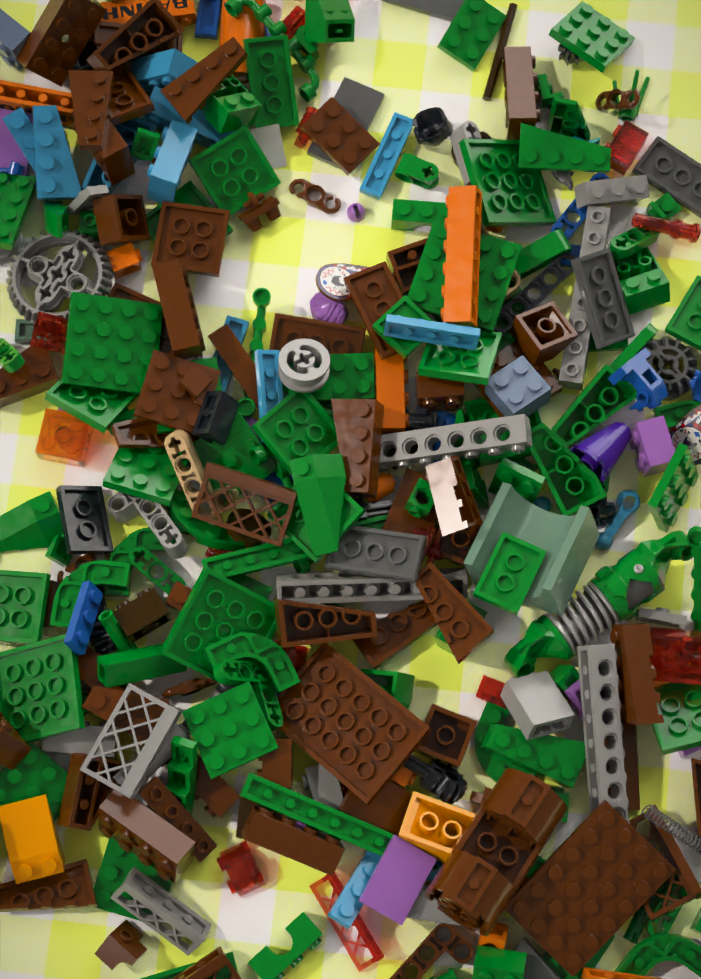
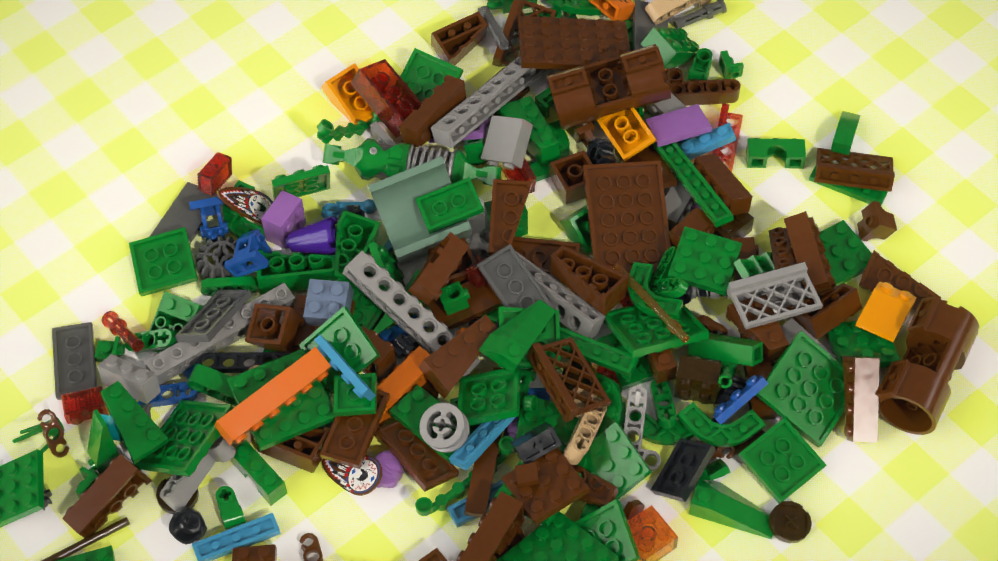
camera: 135 degrees left, 20 degrees down
(99, 452) = (633, 508): none -> reddish brown tile
(165, 909) = (834, 219): light grey fence -> none
(195, 628) = (672, 325): none -> clear orange bar
(241, 869) = (764, 211): clear red cylinder -> none
(352, 215) = (301, 524): medium lavender hinge -> none

